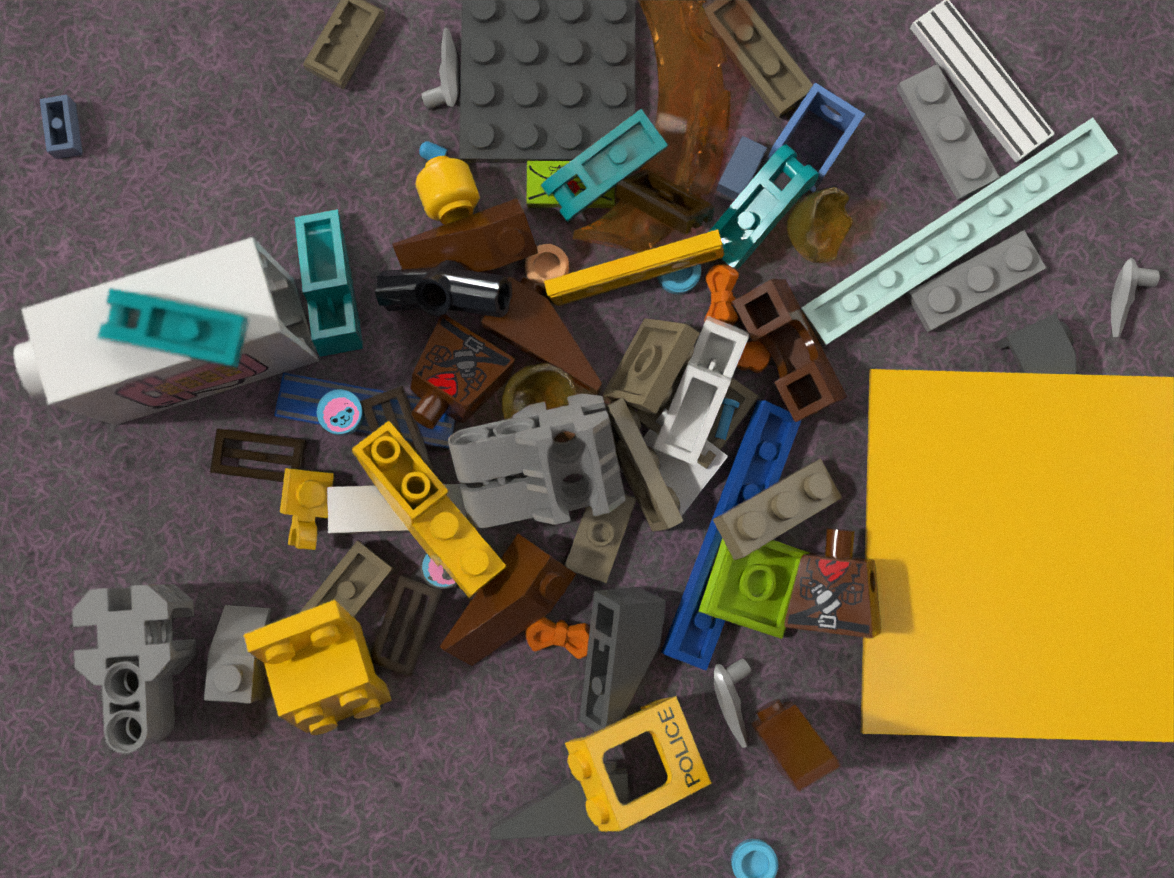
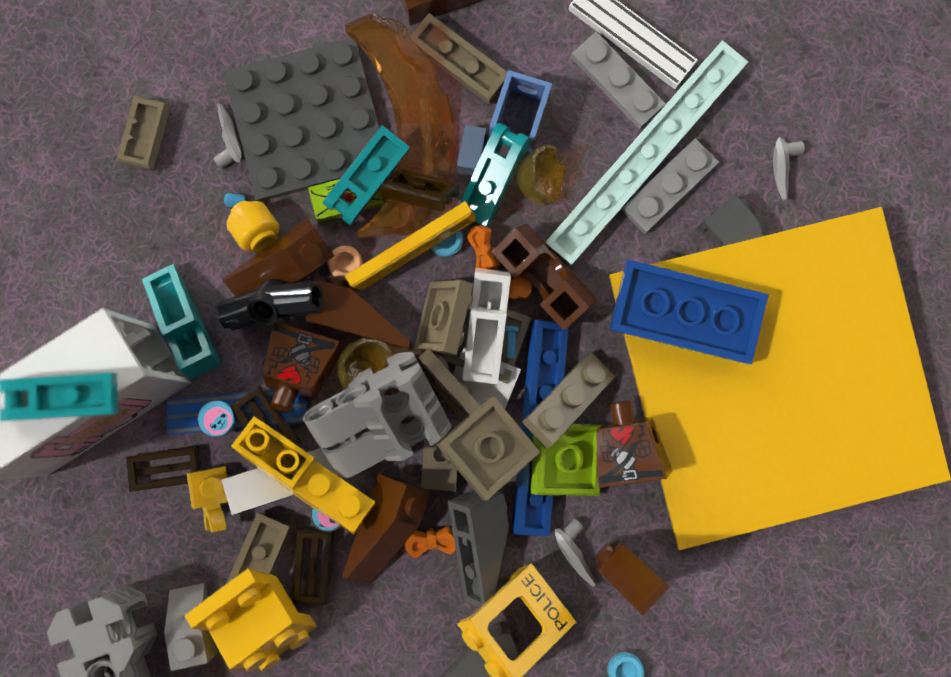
camera: 20 degrees left, 0 degrees up
(663, 539) = (488, 448): none -> dark tan plate
(956, 442) = (688, 312): none -> blue plate

